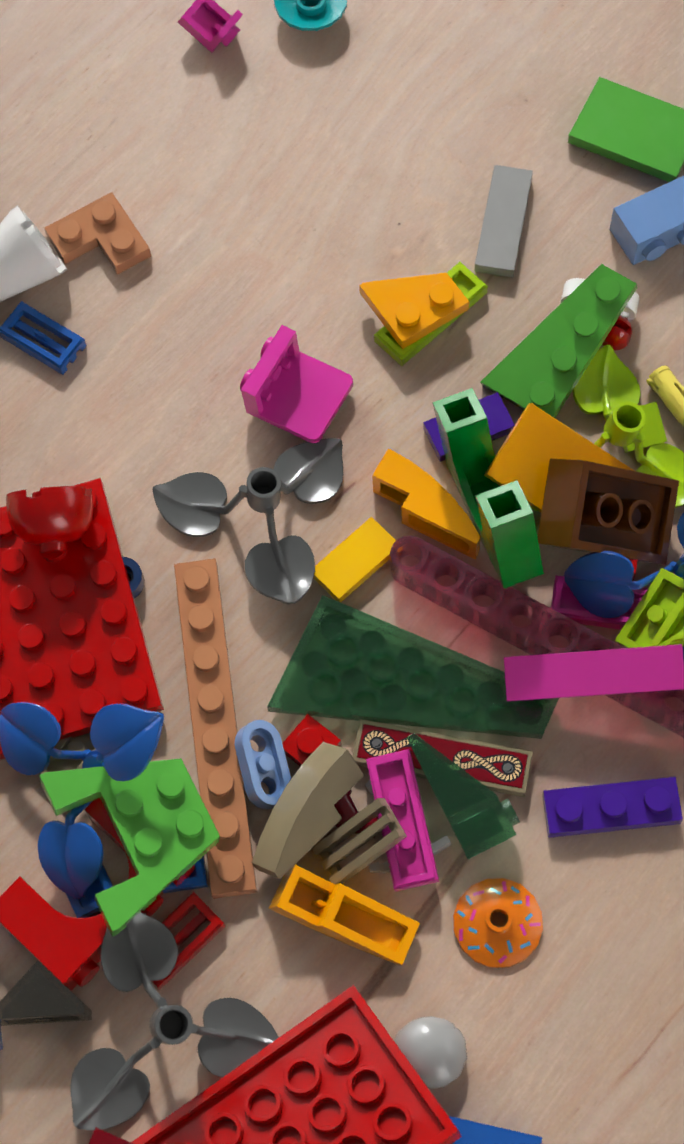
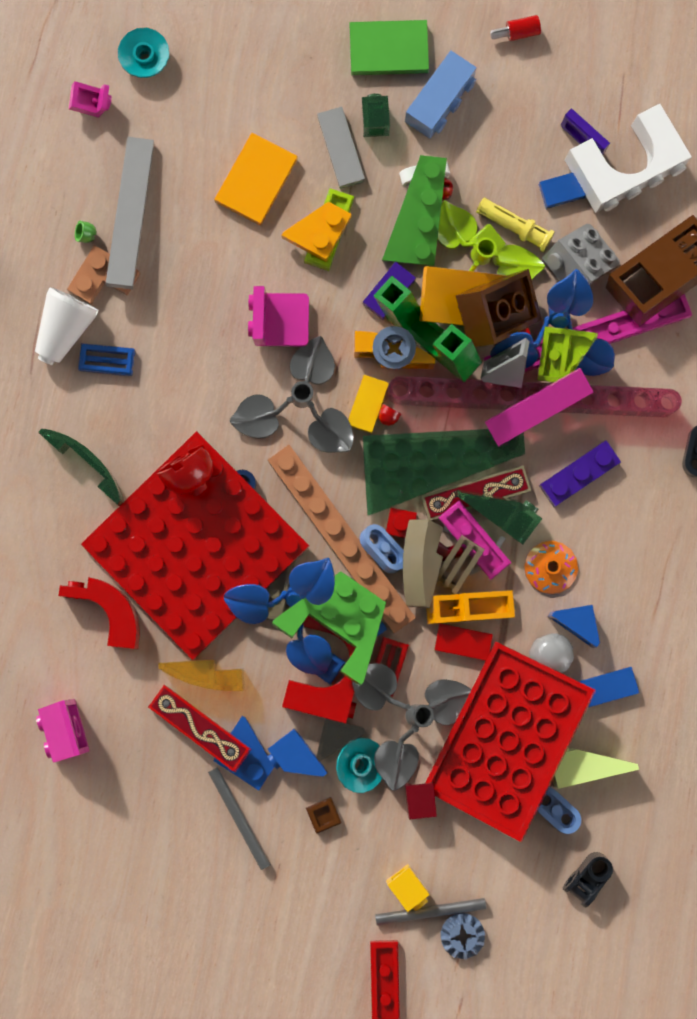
camera: 35 degrees left, 15 degrees up
(41, 1085) = (365, 775): none -> teal dish
(110, 172) = (85, 232): none -> bright green hinge
(178, 174) = (130, 213): none -> light grey tile
(306, 962) = (463, 642): none -> red tile
(368, 209) = (256, 179): none -> light orange tile
(375, 588) = (388, 415): none -> red hinge
(438, 478) = (394, 335): none -> sand blue gear
(494, 1021) = (579, 622): none -> blue slope
(571, 200) = (375, 115): none -> clear green brick
(580, 597) = (507, 366): none -> light grey slope

